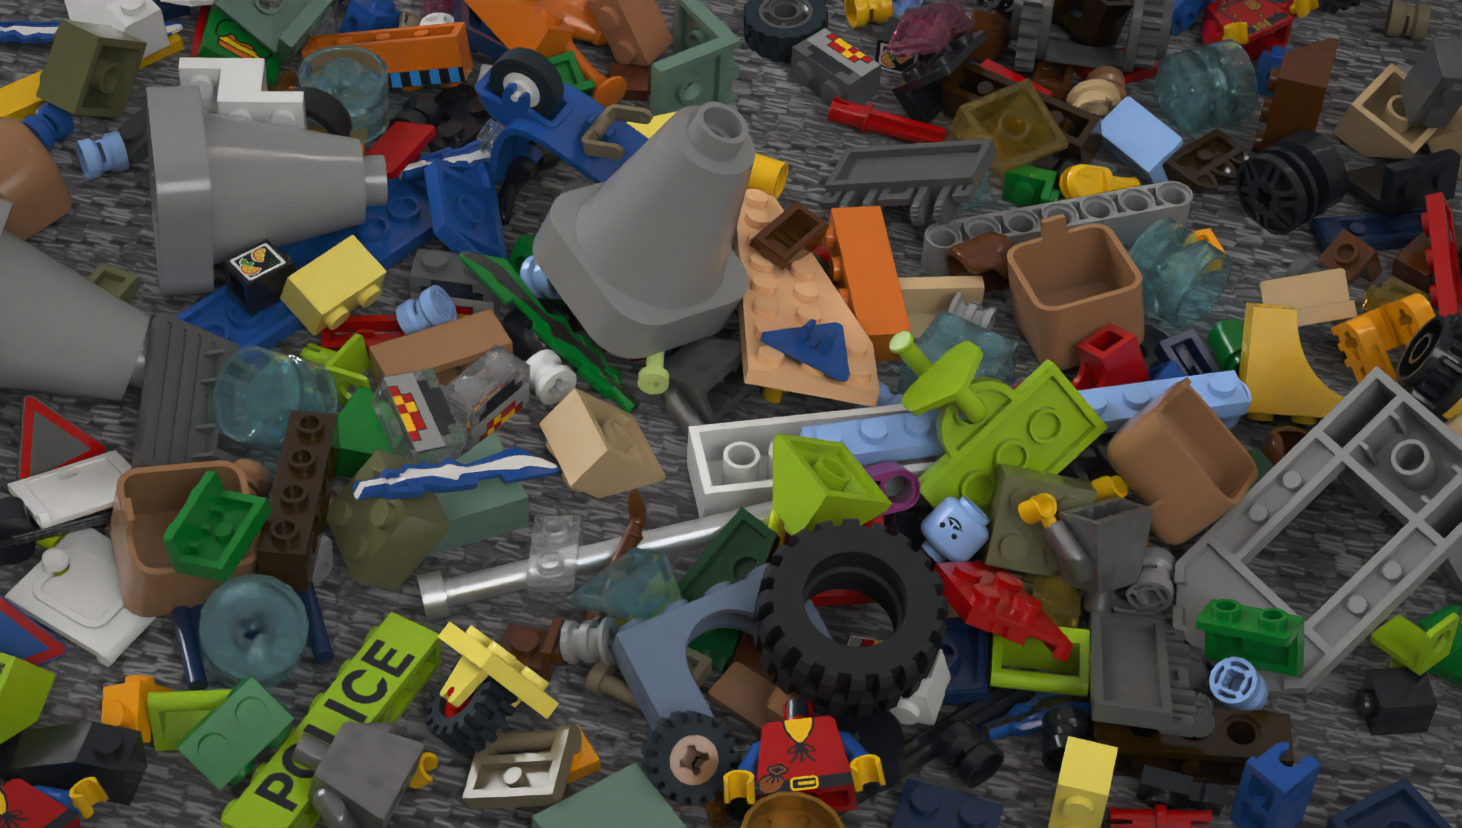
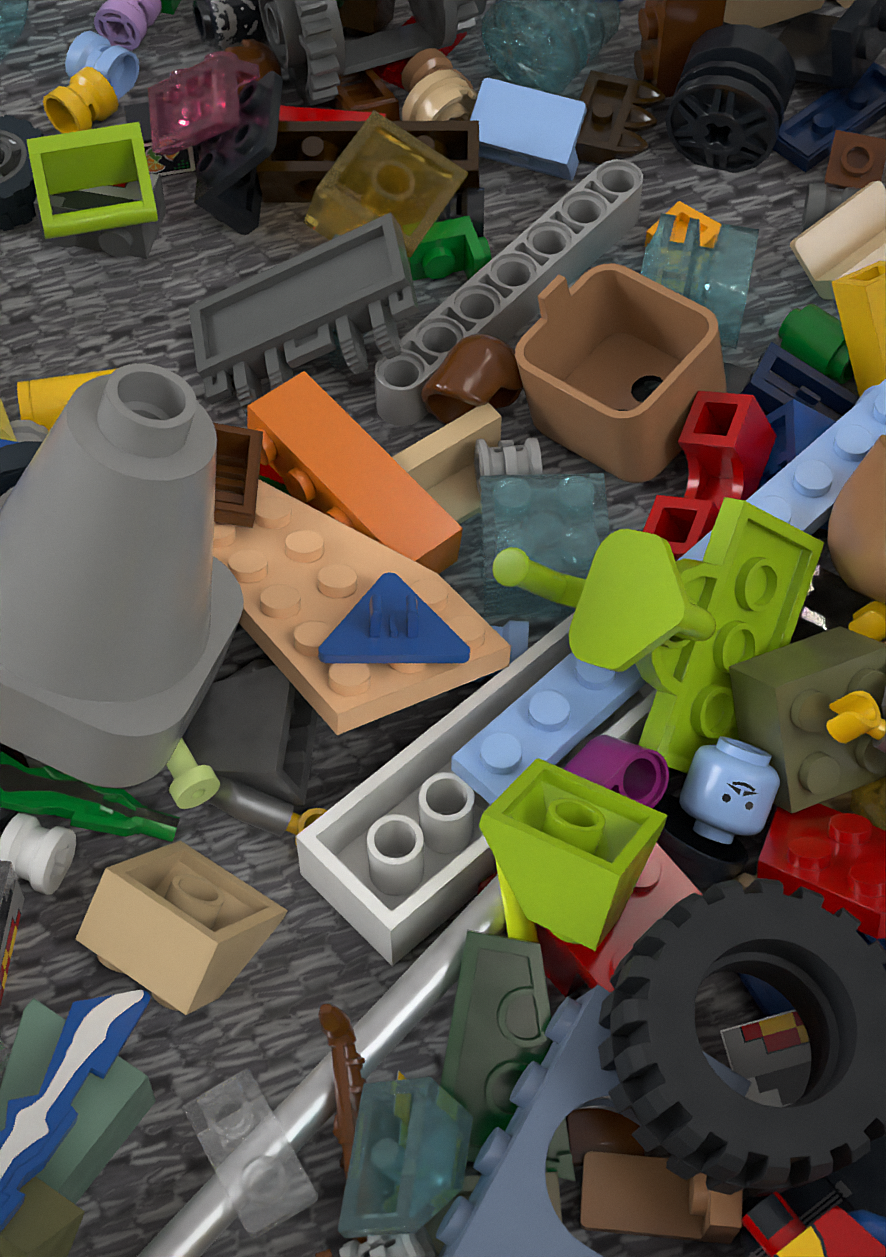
camera: 30 degrees left, 10 degrees up
(835, 35) = (90, 161): none -> lime tile
(884, 123) = (183, 253): red axle -> none
(1090, 180) = (516, 208): yellow arm -> none

